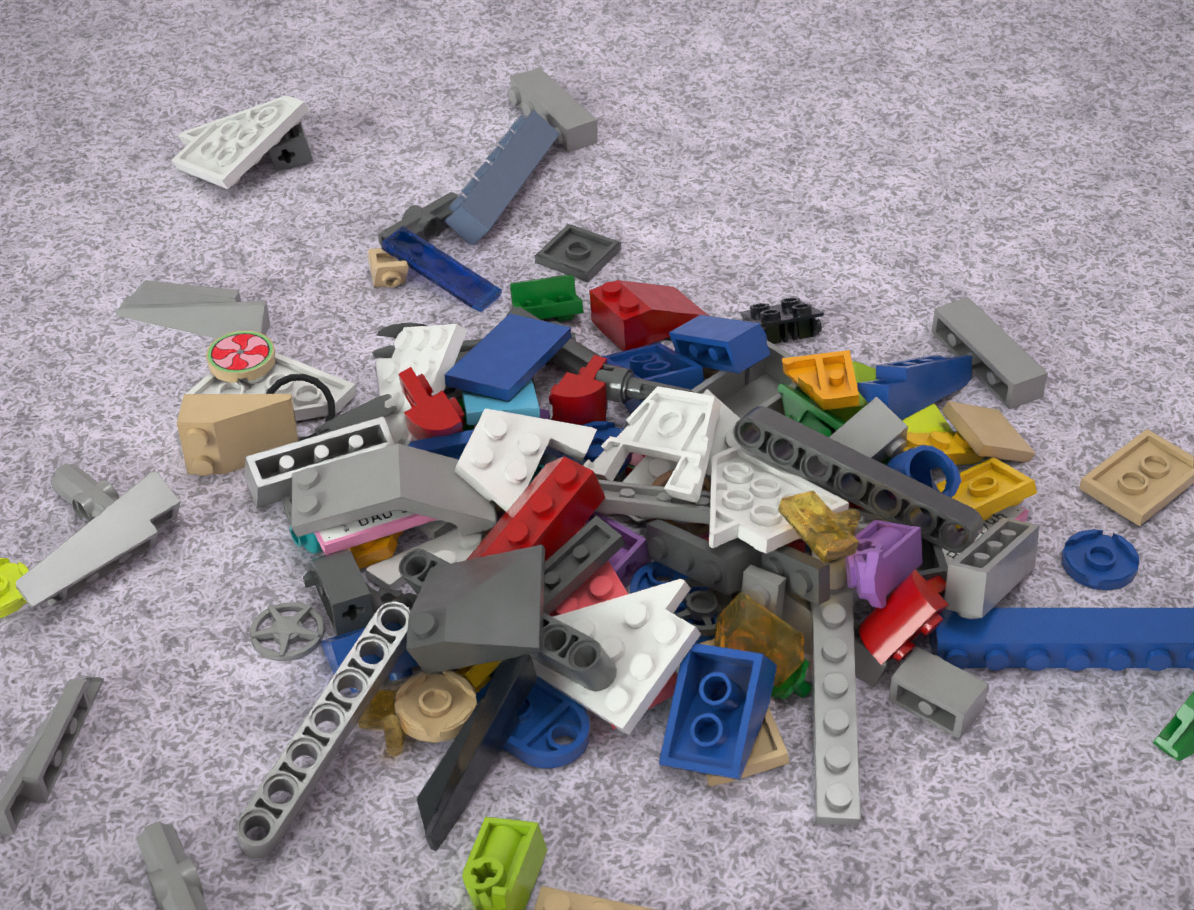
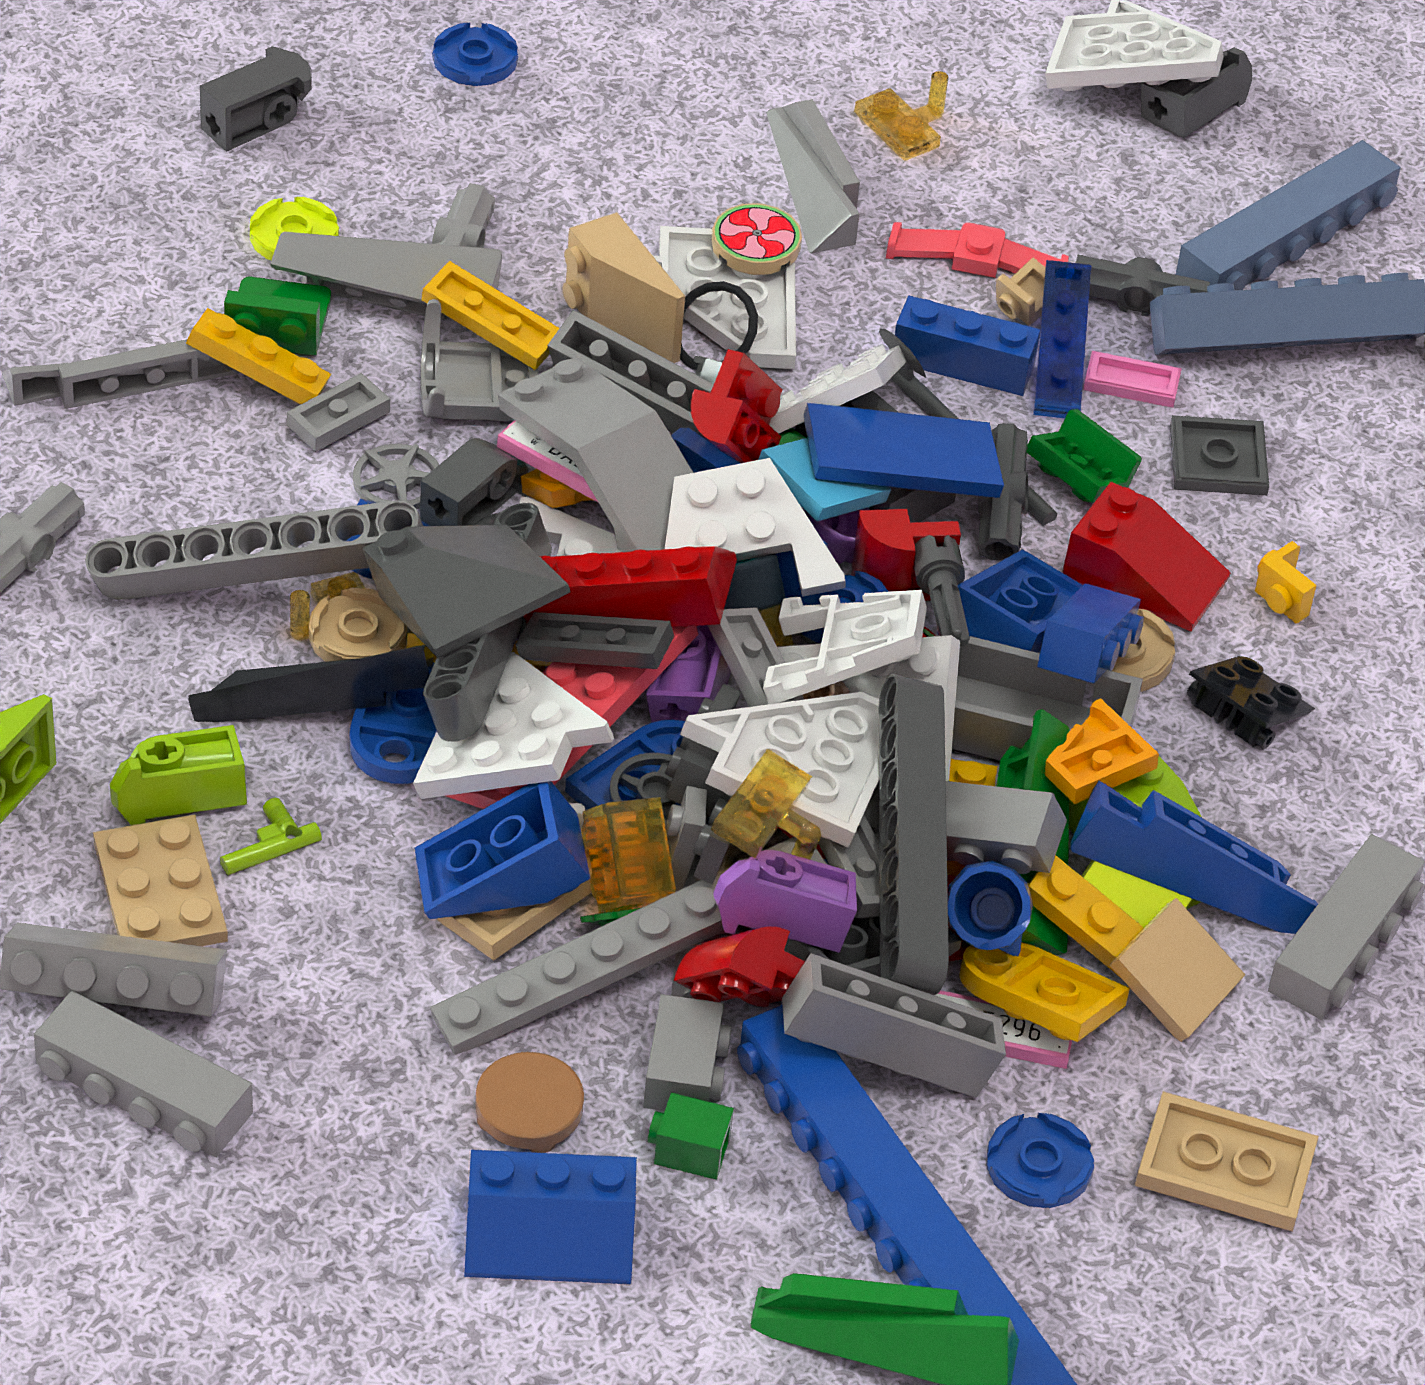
camera: 55 degrees right, 5 degrees up
(76, 628) = (281, 310): none -> green bracket
(116, 654) = (257, 357): none -> yellow plate
(190, 261) = (899, 124): none -> clear yellow plate
(201, 505) = (491, 314): none -> yellow plate
(201, 635) = (338, 412): none -> light grey plate
(234, 547) = (464, 377): none -> light grey piece
(326, 274) = (973, 248): none -> coral plate
(421, 301) = (969, 344): none -> blue brick
(424, 146) = (1292, 218): none -> sand blue brick
(492, 257) = (1132, 379): none -> bright pink tile
(590, 848) = (272, 839): none -> lime hose
(706, 266) = (1283, 585): none -> yellow bracket
(933, 796) = (529, 1101): none -> medium nougat tile
(1012, 716) = (691, 1135): none -> green brick
(1052, 827) = (550, 1217): none -> blue slope

